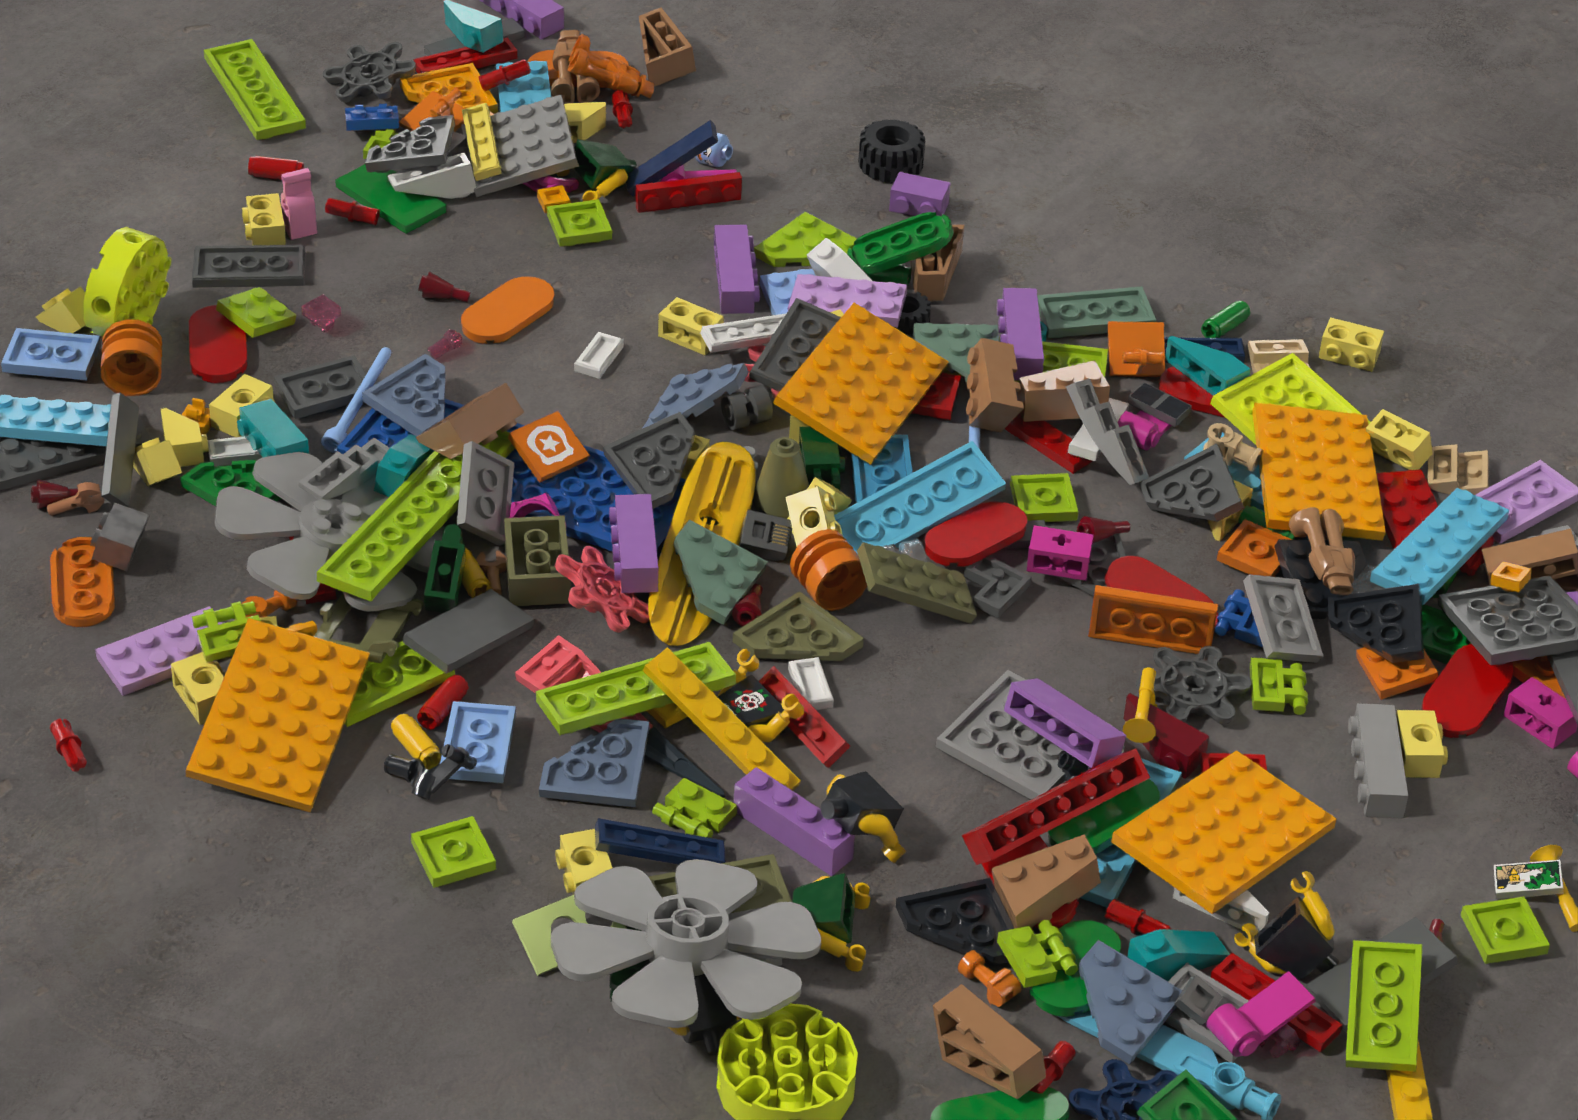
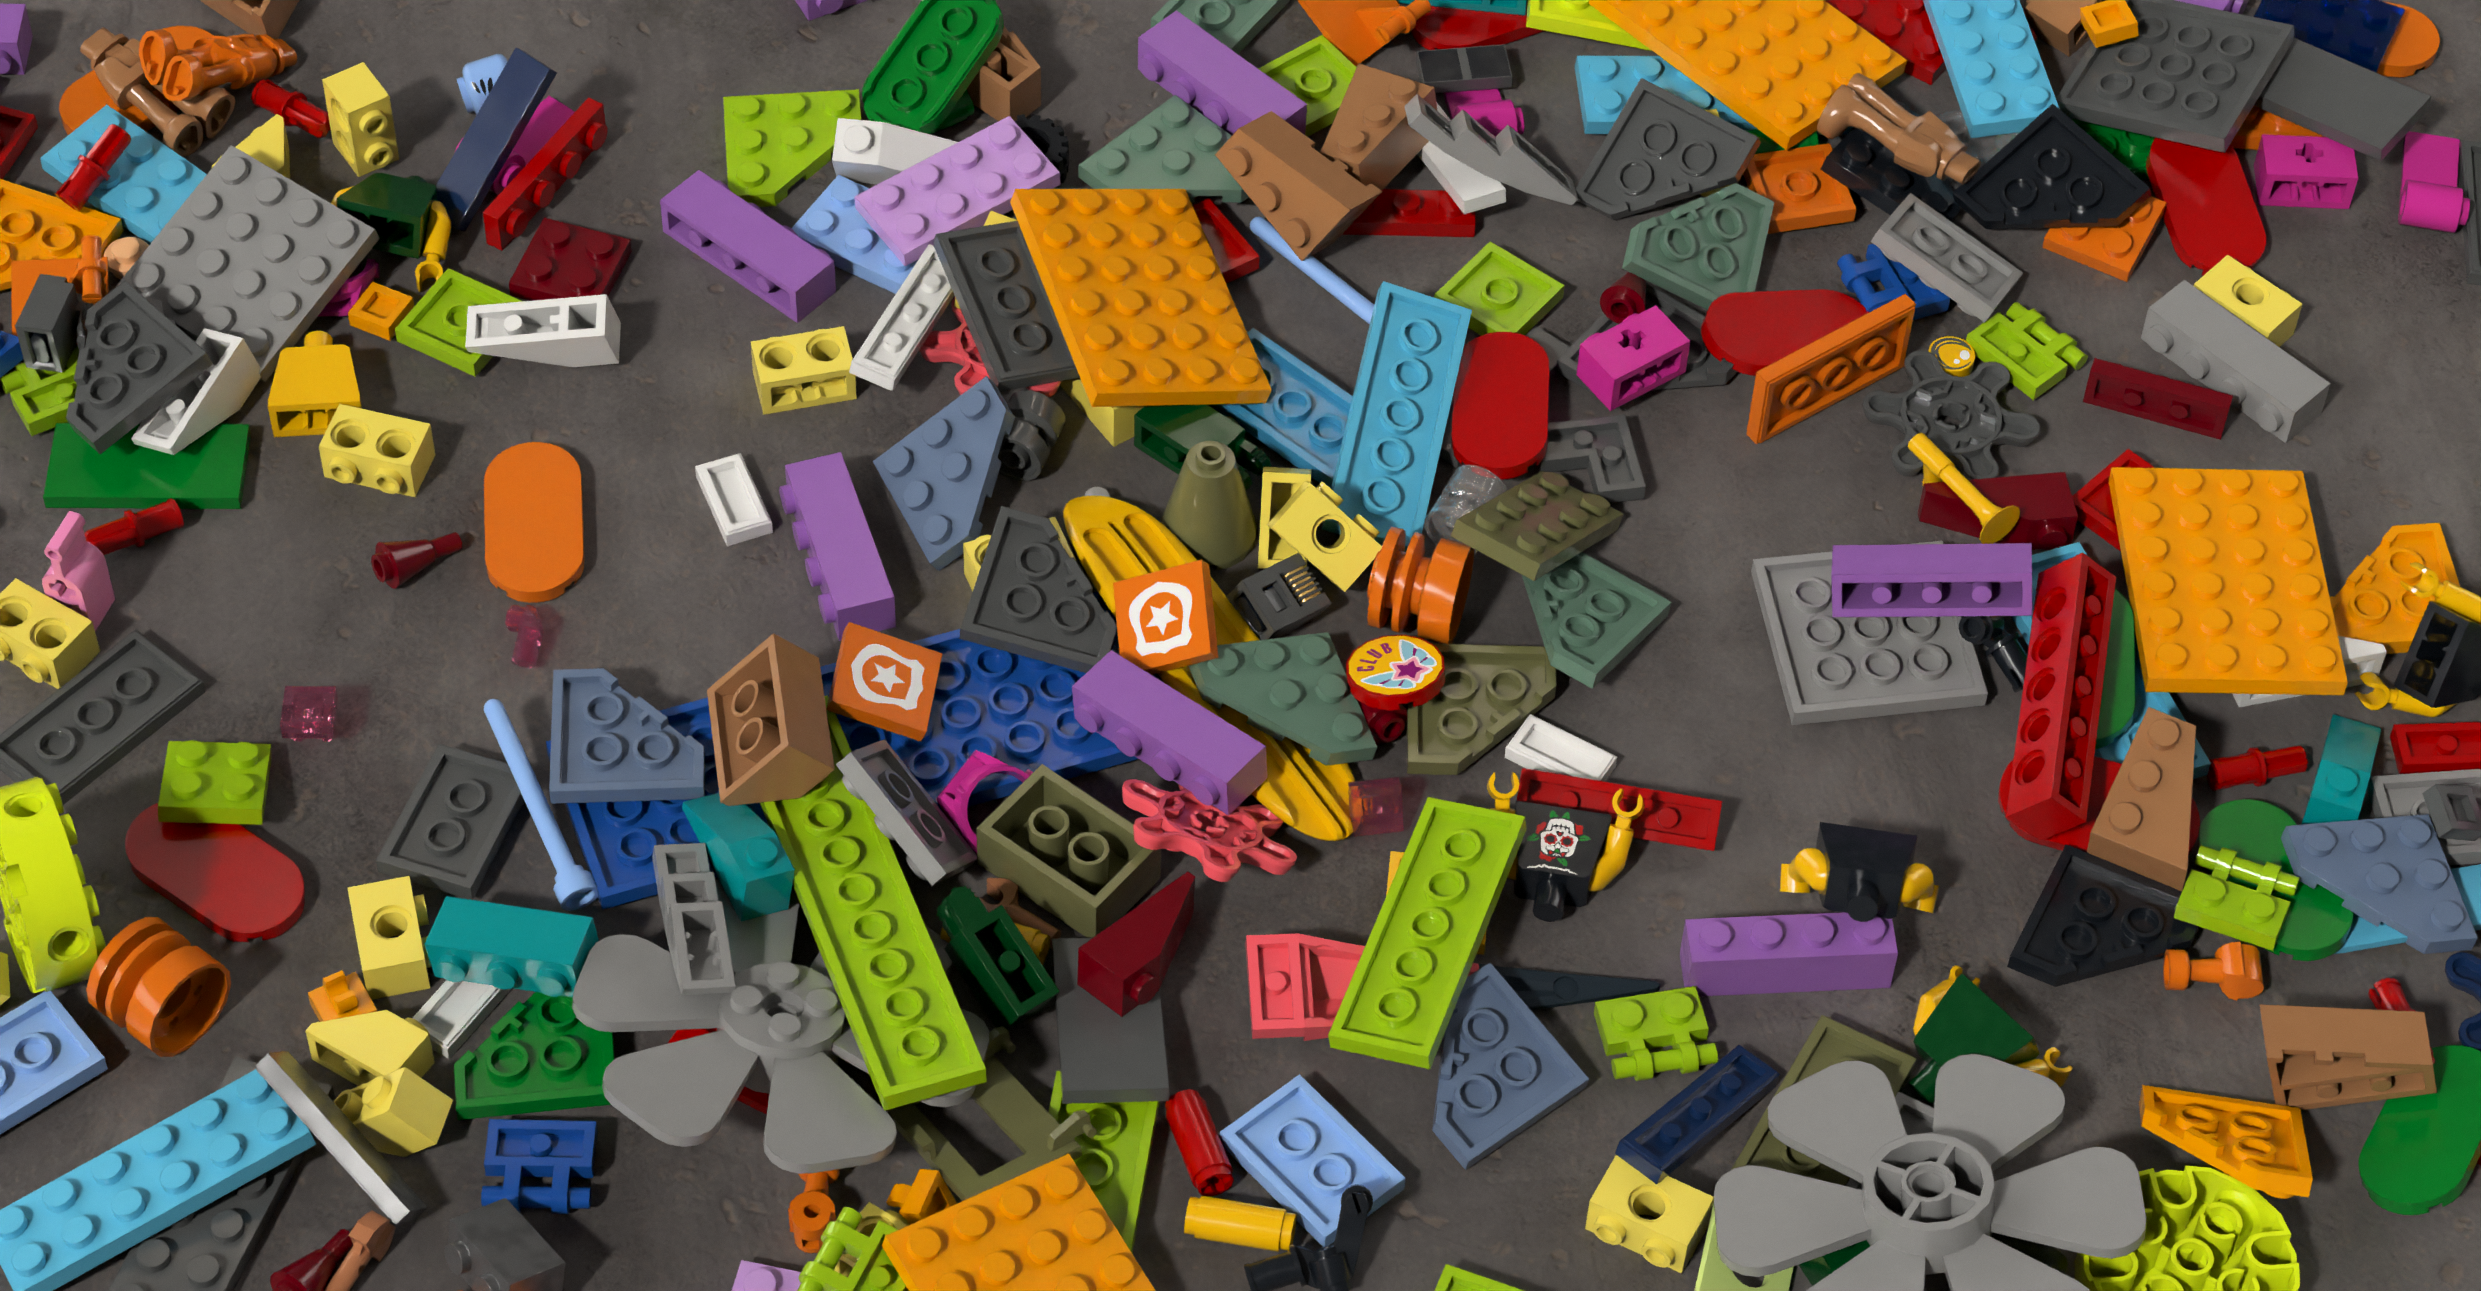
camera: 45 degrees left, 10 degrees up
(191, 513) = (540, 1150): none -> blue plate
(409, 112) = (52, 324): none -> dark grey piece
(479, 244) = (377, 450): none -> light yellow brick
(481, 141) = (196, 292): light yellow tile -> none
(487, 208) = (311, 386): none -> yellow torso
(515, 610) = (1133, 954): none -> dark red slope
(603, 243) = (547, 331): none -> white slope
(612, 396) = (838, 544): none -> medium lavender brick
(635, 123) = (361, 119): none -> light yellow brick
(654, 233) = (569, 262): none -> dark red plate
(690, 499) = (1167, 618): none -> orange tile
(694, 634) = (1376, 806): none -> clear pink tile
(716, 718) = (1570, 895): yellow plate -> none
(770, 592) = (1395, 672): none -> tile
(890, 1041) = (2240, 1137): none -> light orange plate
(898, 638) = (1592, 616): none -> sand green plate
(1163, 533) = (1703, 245): none -> sand green plate
(1232, 446) = (1643, 63): tan connector -> none
(1234, 663) = (1954, 355): none -> yellow tile
(1314, 747) = (2157, 398): none -> dark red plate
(1348, 903) = (2375, 604): none -> light orange plate

